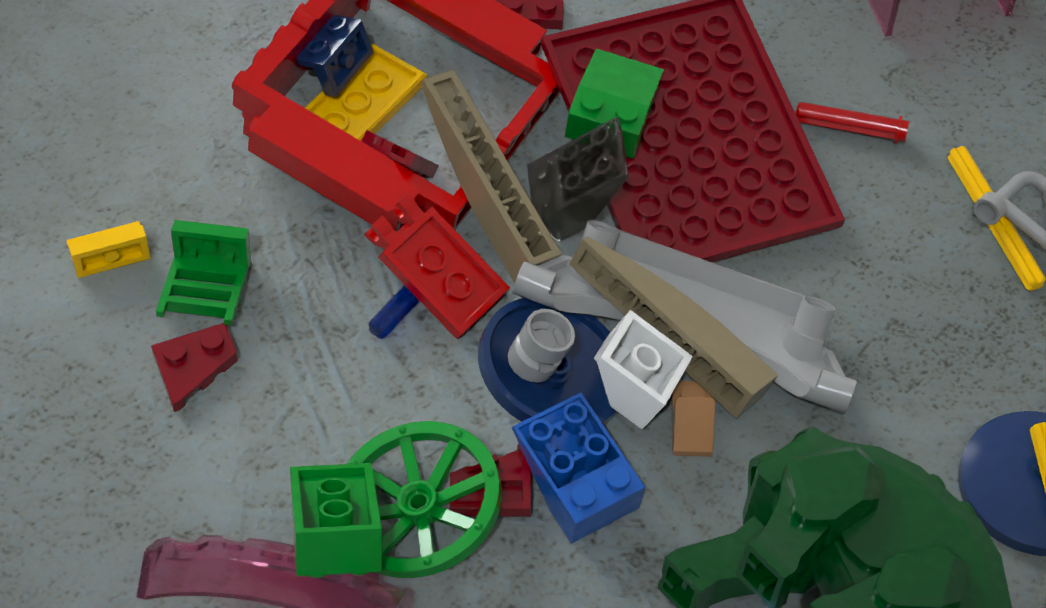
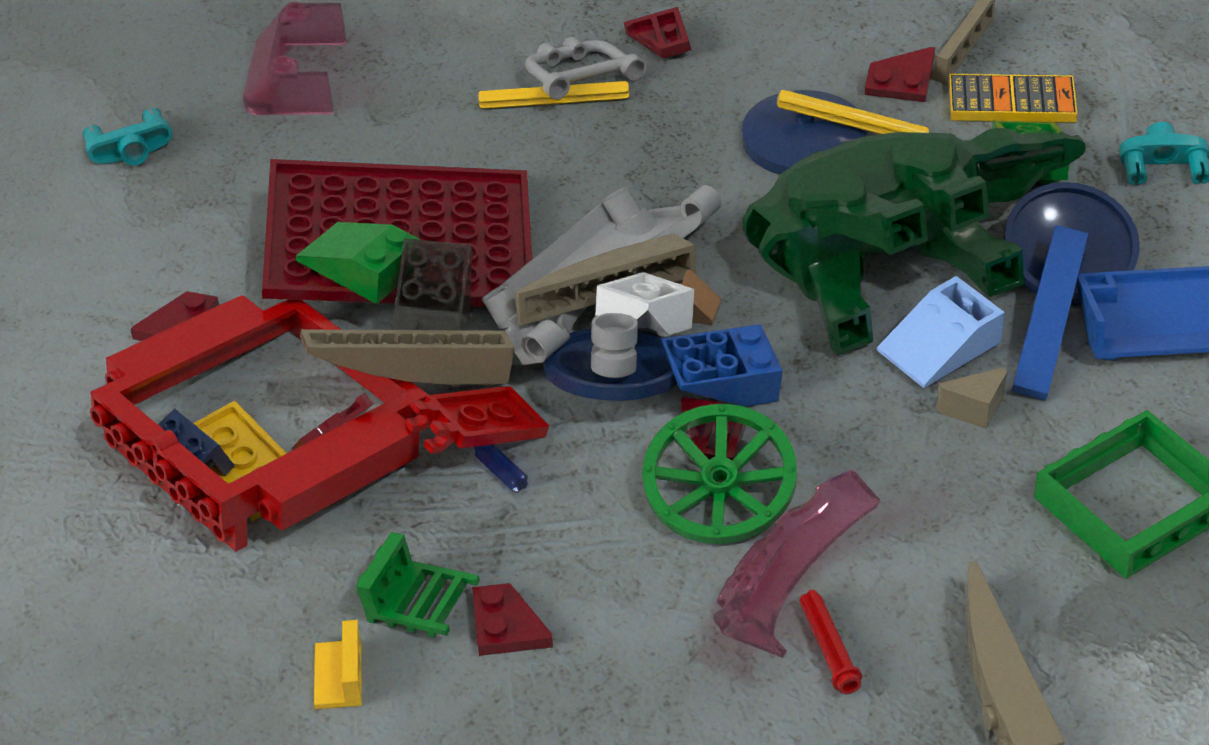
camera: 70 degrees left, 10 degrees down
(335, 520) = (735, 515): green slope -> none
(852, 121) = (442, 124): red axle -> none

